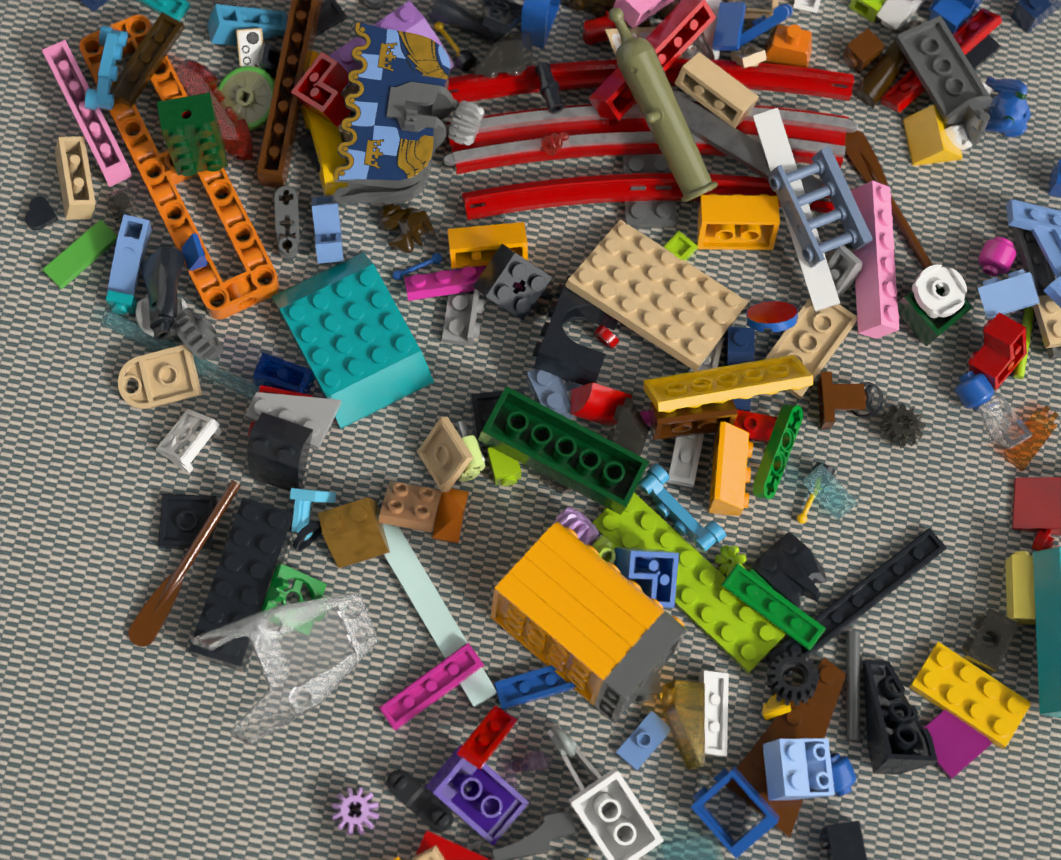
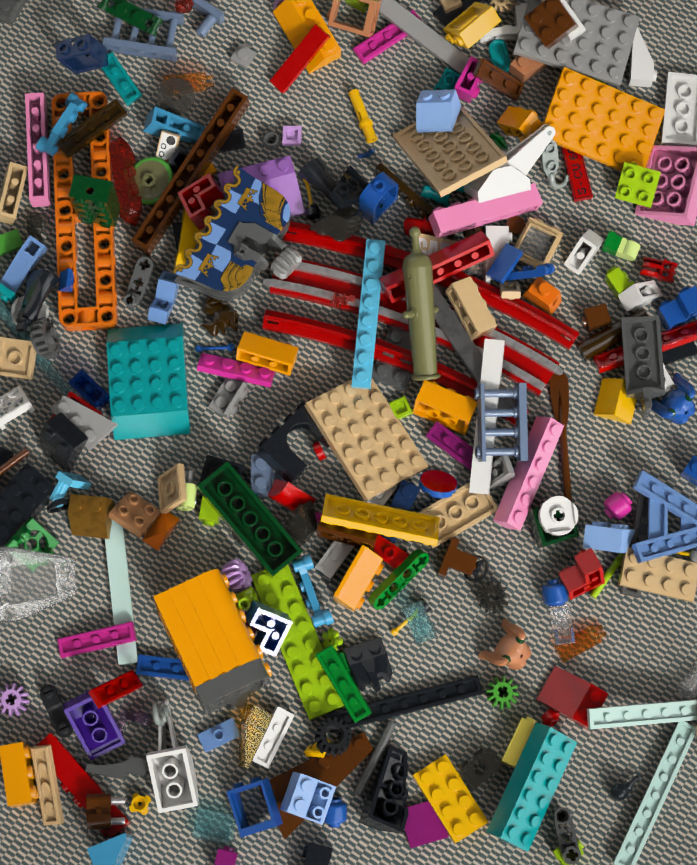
camera: 30 degrees right, 5 degrees up
(513, 283) = (270, 389): black hinge -> none
(549, 88) = (356, 259): black pin -> none
(594, 148) = (368, 314): none -> medium azure plate
(766, 266) = (451, 444): none -> magenta plate
(956, 477) = (509, 648): none -> nougat hair
(958, 136) = (633, 407): white tile -> none
(978, 532) = (509, 692): none -> bright green gear

